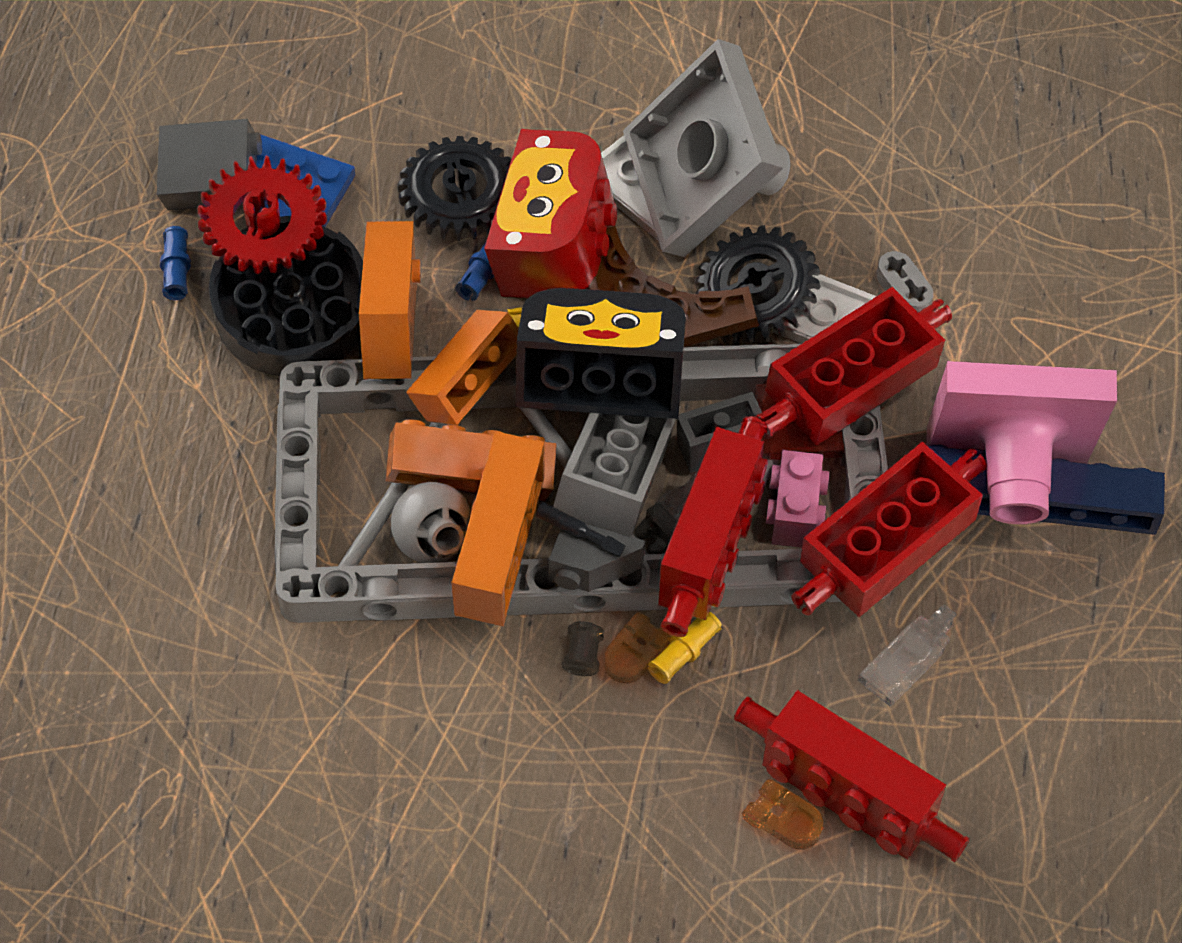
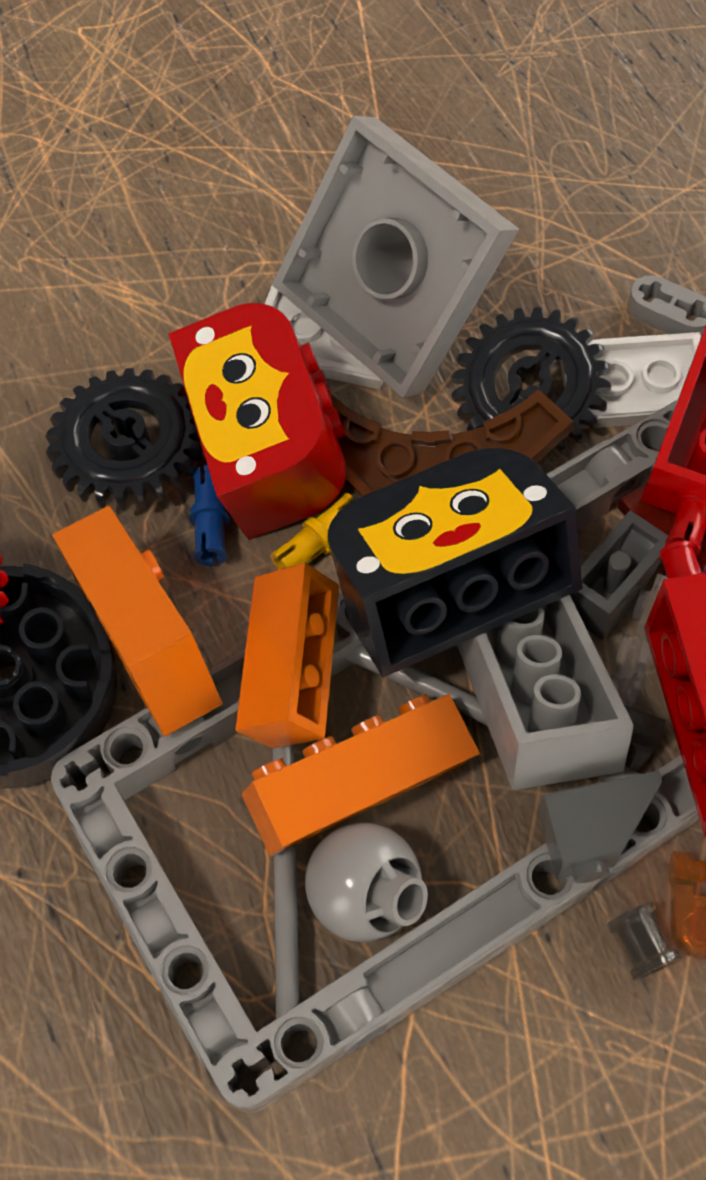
camera: 25 degrees left, 5 degrees up
(498, 528) = (478, 857): orange brick -> none
(578, 528) = (575, 802): black piece -> none

